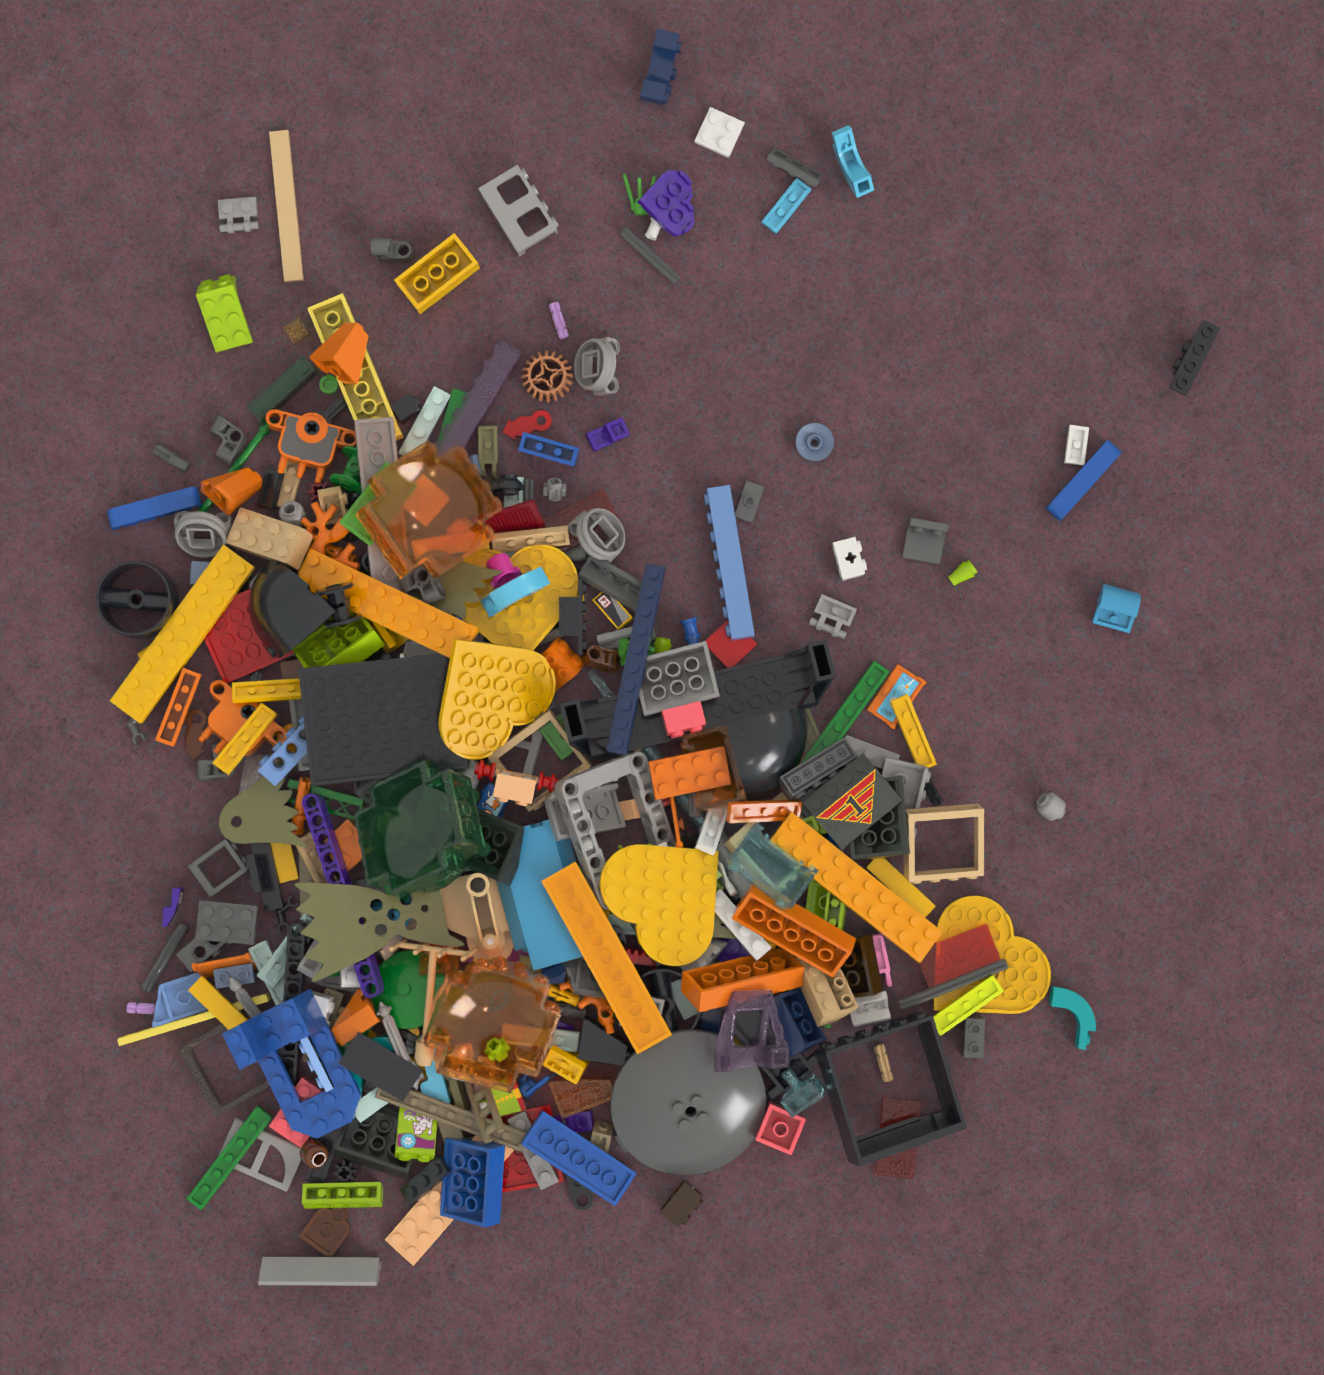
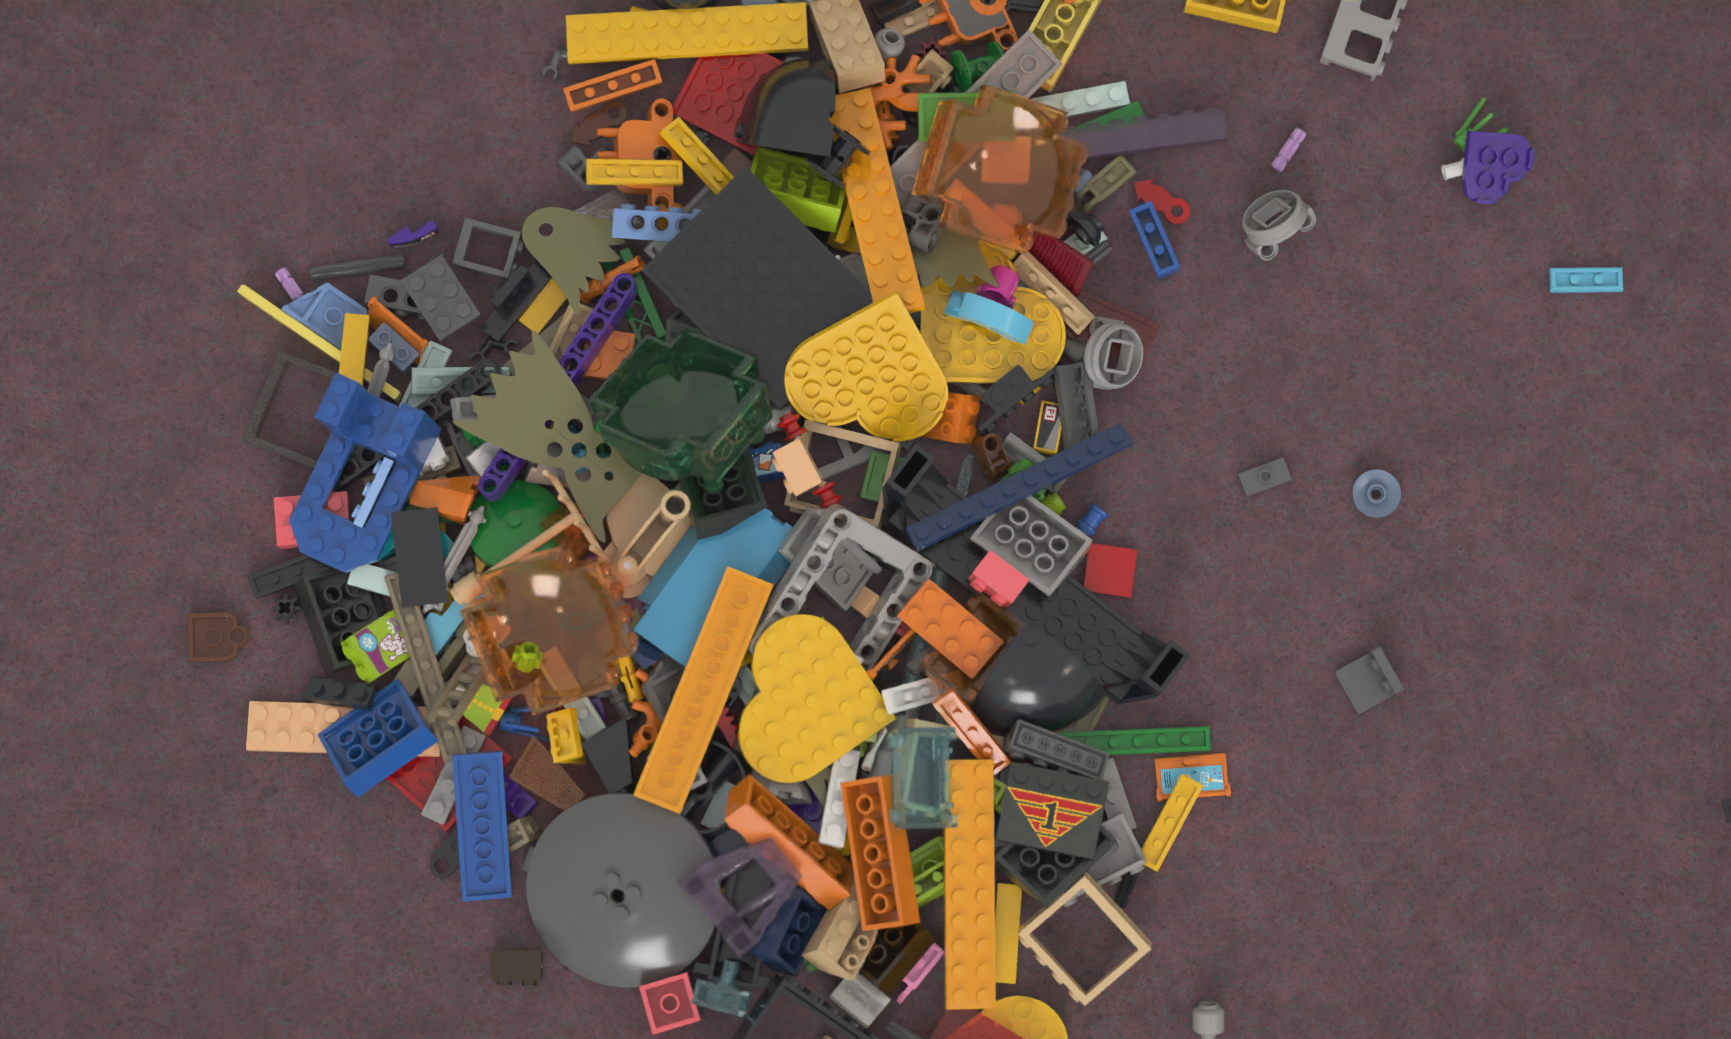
camera: 50 degrees right, 5 degrees down
(229, 1157) = (211, 485): green tile -> none
(288, 1150) = (262, 542): light grey window -> none
(313, 1153) = (281, 562): reddish brown head -> none
(320, 1271) = (171, 659): light grey slope -> none
(342, 1195) = (261, 624): lime brick -> none
(406, 407) = (1082, 71): black brick -> none
(539, 378) = (1214, 199): nougat gear -> none
(554, 489) = (1120, 277): light grey gear -> none
(607, 434) = (1216, 286): dark purple slope -> none
(650, 255) = (1425, 187): dark grey axle -> none
(661, 71) = (1617, 51): dark blue brick -> none
(719, 132) = (1602, 157): white plate -> none
(730, 563) = (1188, 506): medium blue brick -> none
(795, 167) = (1630, 257): dark grey plate -> none
(835, 611) = (1226, 648): light grey plate -> none
(846, 569) = (1276, 626): white brick -> none
(850, 162) = (1680, 307): medium azure arch -> none
(962, 573) = (1368, 744): lime cone -> none
(1076, 445) = (1588, 755): white plate -> none
(1083, 480) = (1559, 790): blue beam -> none
(1116, 608) = (1459, 926): dark azure brick -> none

